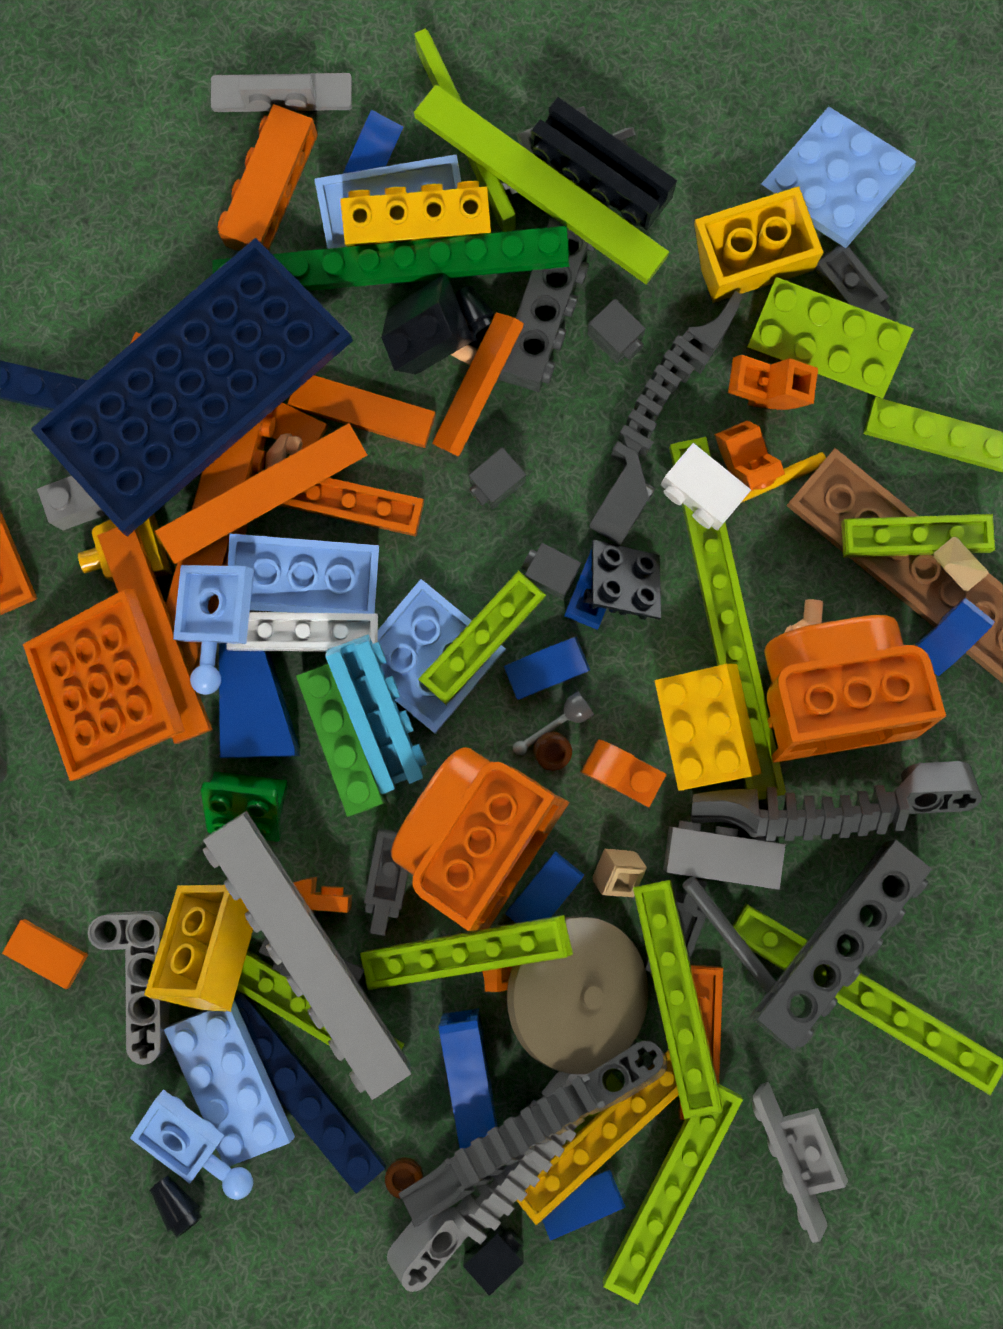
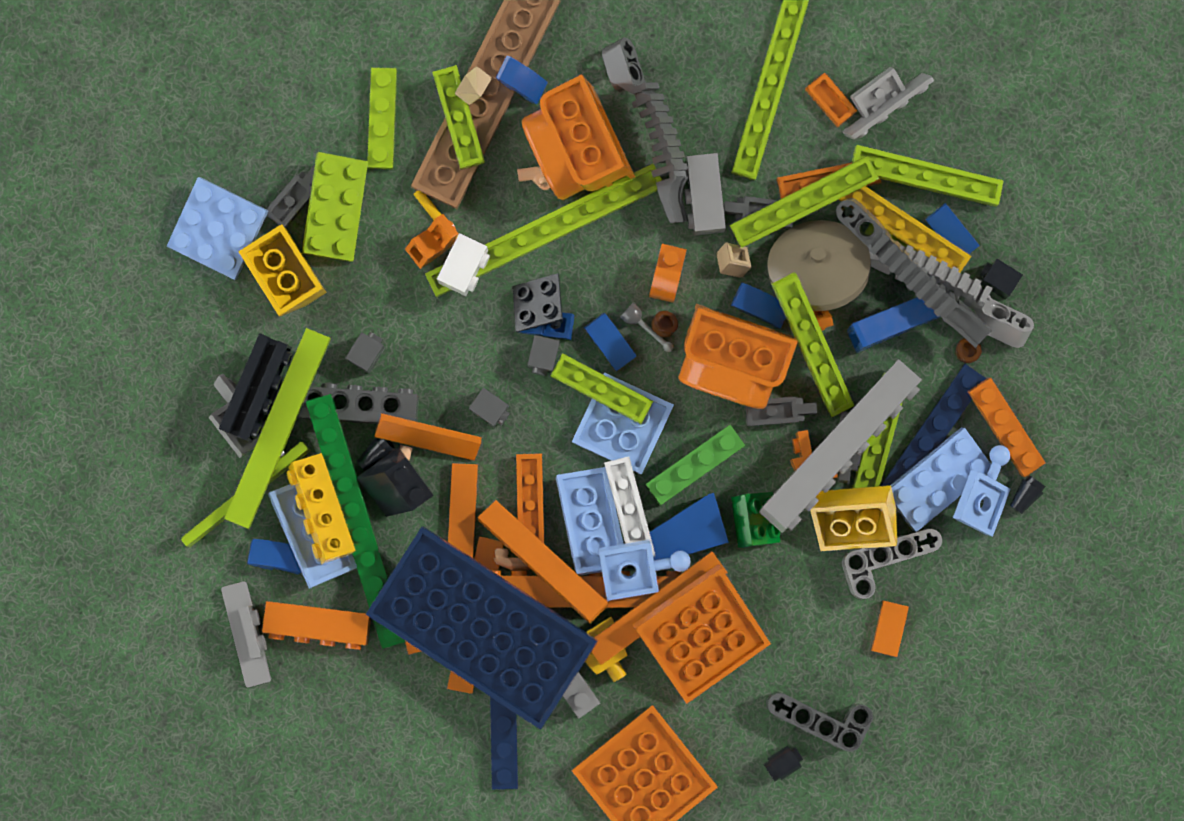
camera: 115 degrees left, 0 degrees up
(278, 1204) = (1006, 427): none -> orange plate
(374, 712) = (671, 446): medium azure brick -> none
(631, 490) = (477, 314): dark grey piece -> none
(707, 726) = (623, 224): yellow brick -> none
(729, 933) = (756, 175): dark grey bar -> none
(774, 1010) = (795, 138): dark grey brick -> none
(775, 385) = (377, 237): orange brick -> none
(818, 1078) = (831, 100): none -> orange tile

